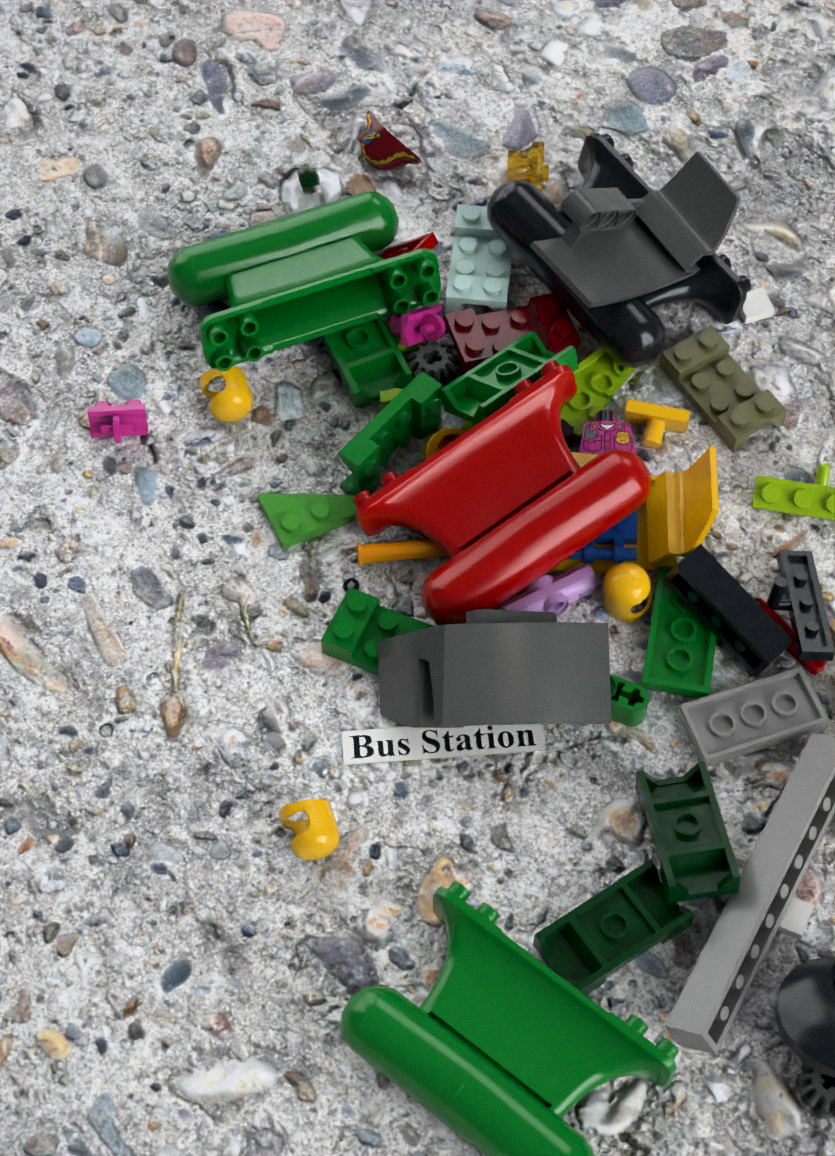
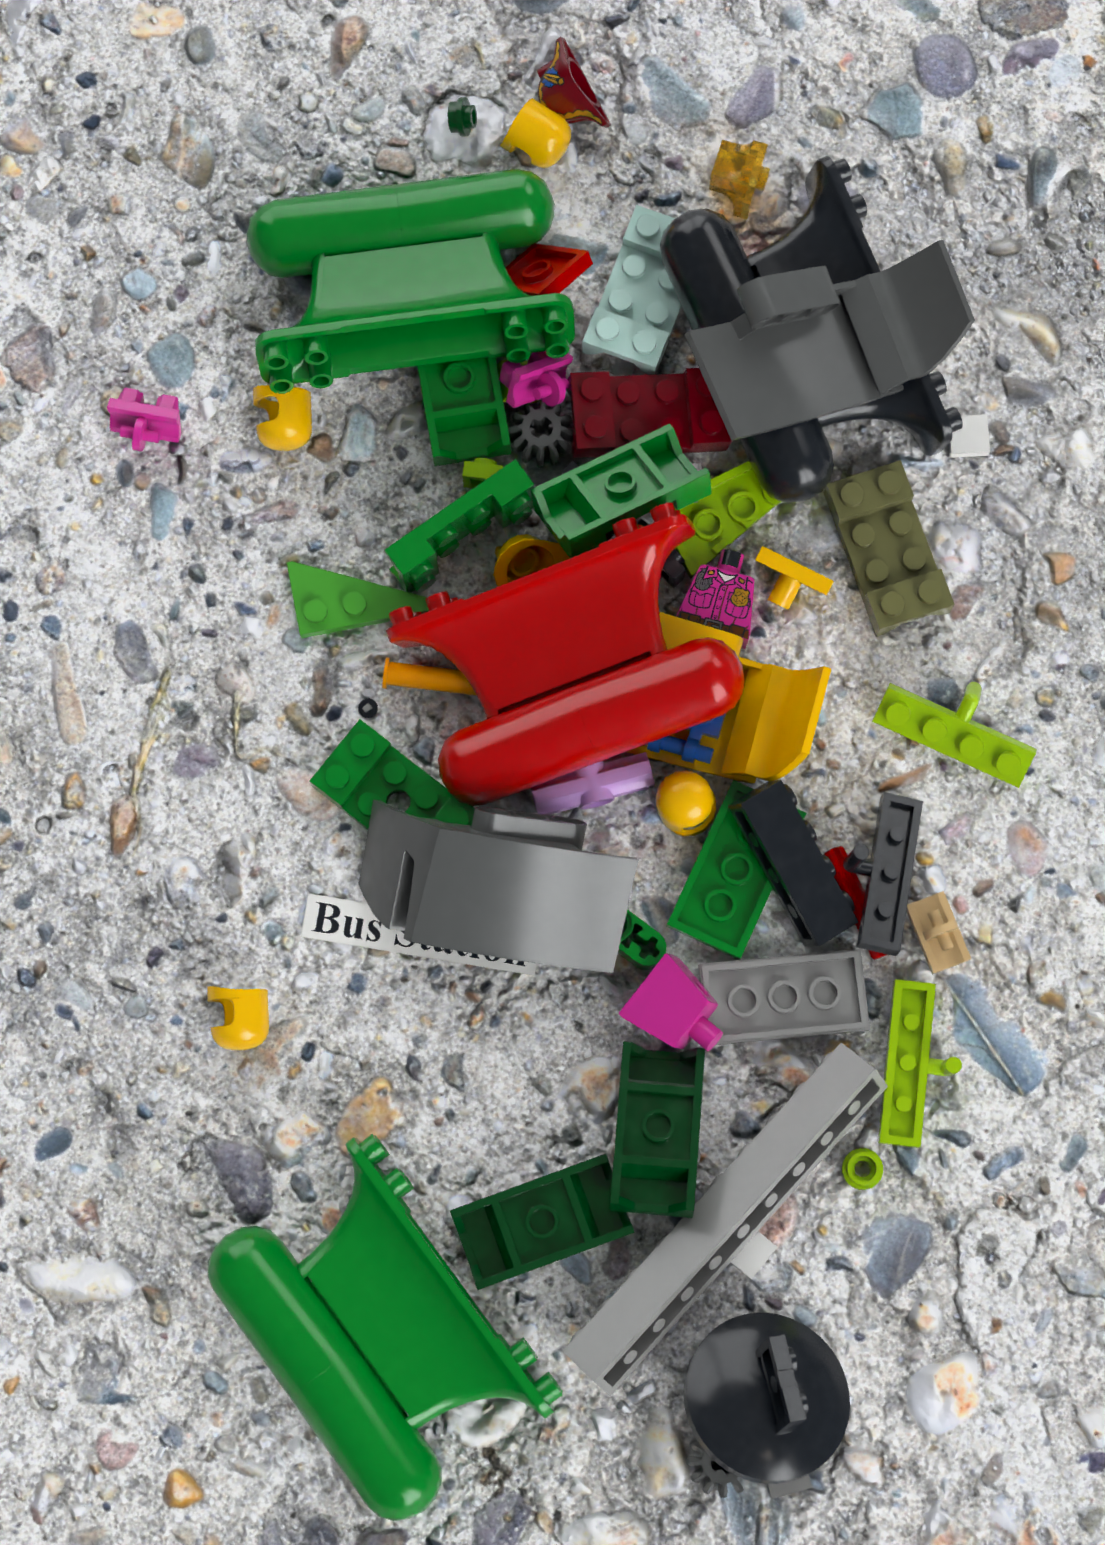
camera: 15 degrees right, 20 degrees up
(370, 172) = (539, 134): none -> yellow helmet
(668, 737) = (673, 1006): none -> dark pink torso

